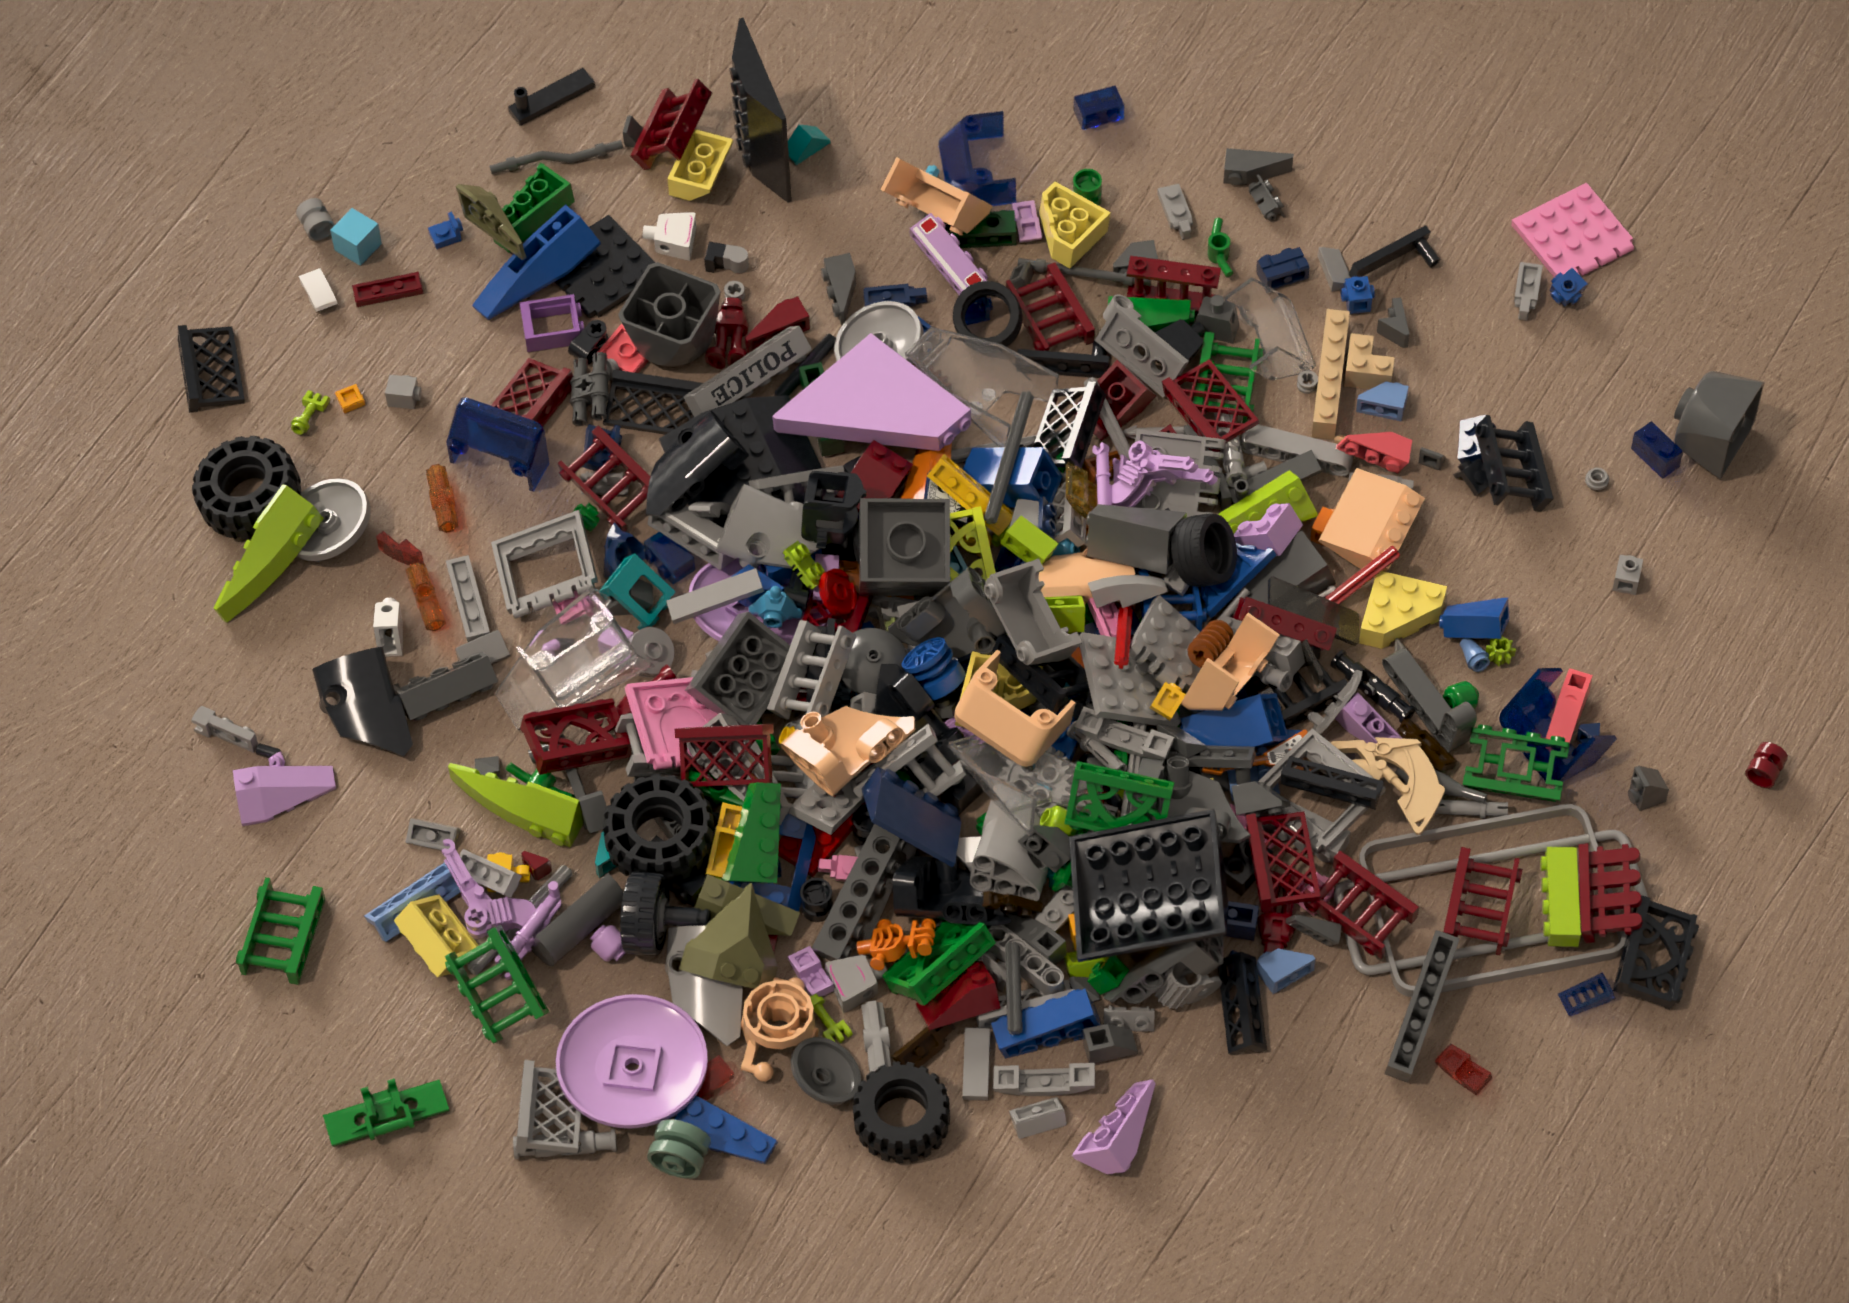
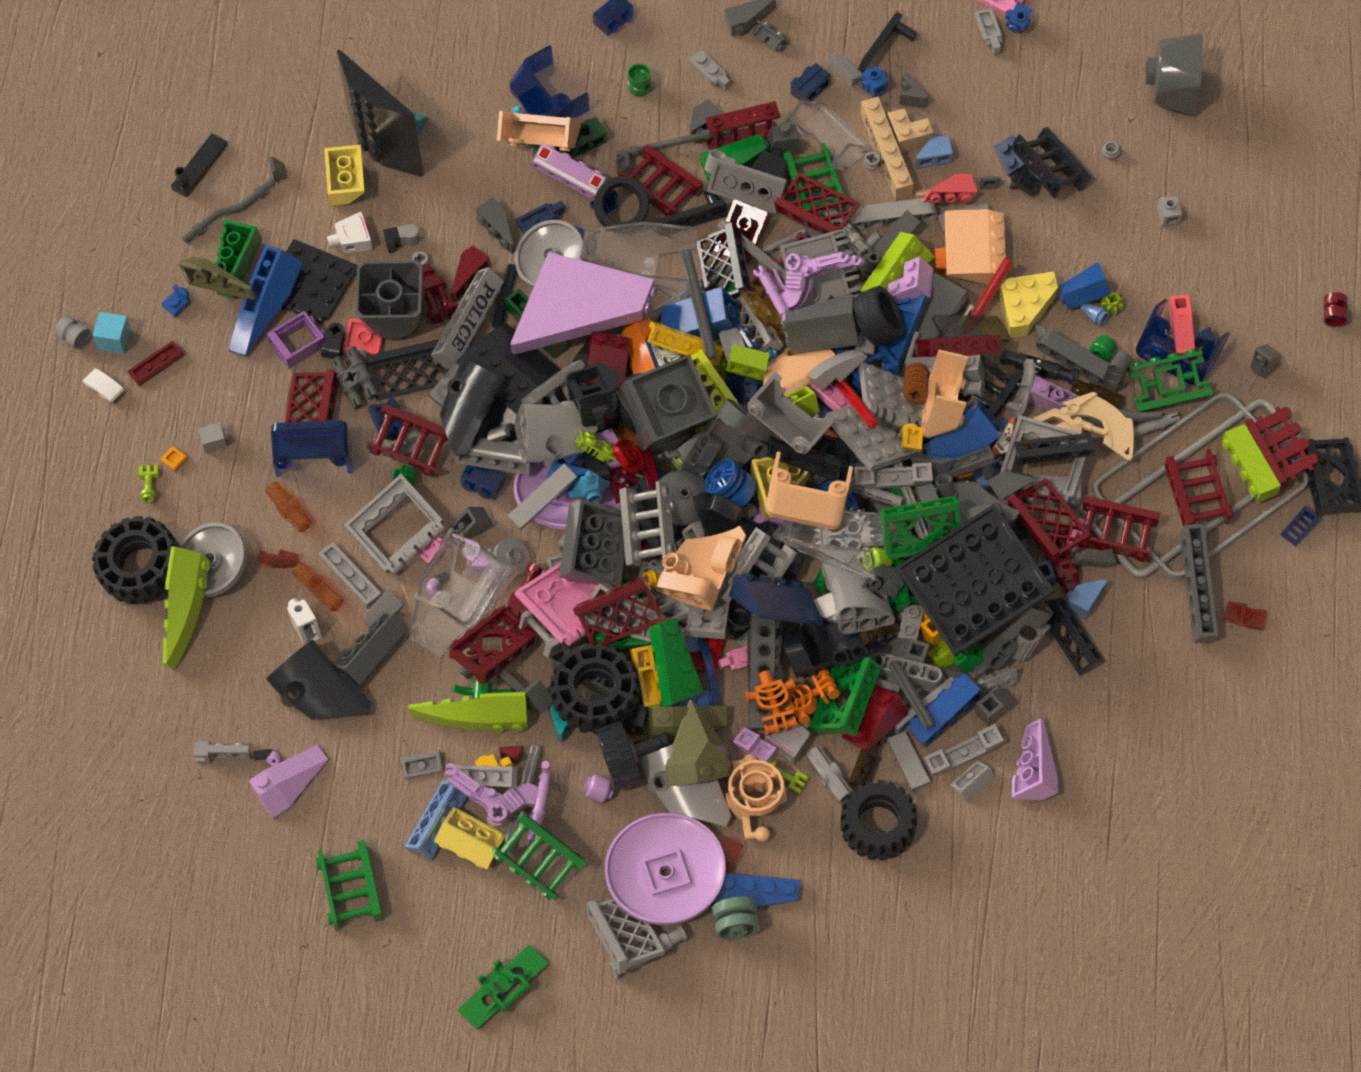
camera: 25 degrees left, 5 degrees up
(191, 372) = (37, 483): black fence -> none
(488, 764) = (434, 694): dark grey slope -> none
(578, 921) = (569, 782): dark grey brick -> none
(618, 547) = (448, 493): dark blue hair -> none
(623, 580) = (464, 512): teal window -> none
(660, 121) = (294, 156): dark red fence -> none
(816, 899) = (732, 690): black wheel -> none
(825, 1070) = (808, 814): dark grey dish -> none
(853, 911) = (767, 689): none -> orange piece
(1027, 221) = (608, 121): lavender slope -> none
(1071, 223) = (641, 110): light yellow brick -> none
(1219, 248) = (756, 85): green piece -> none
(1657, 449) = (1142, 112): clear blue brick -> none

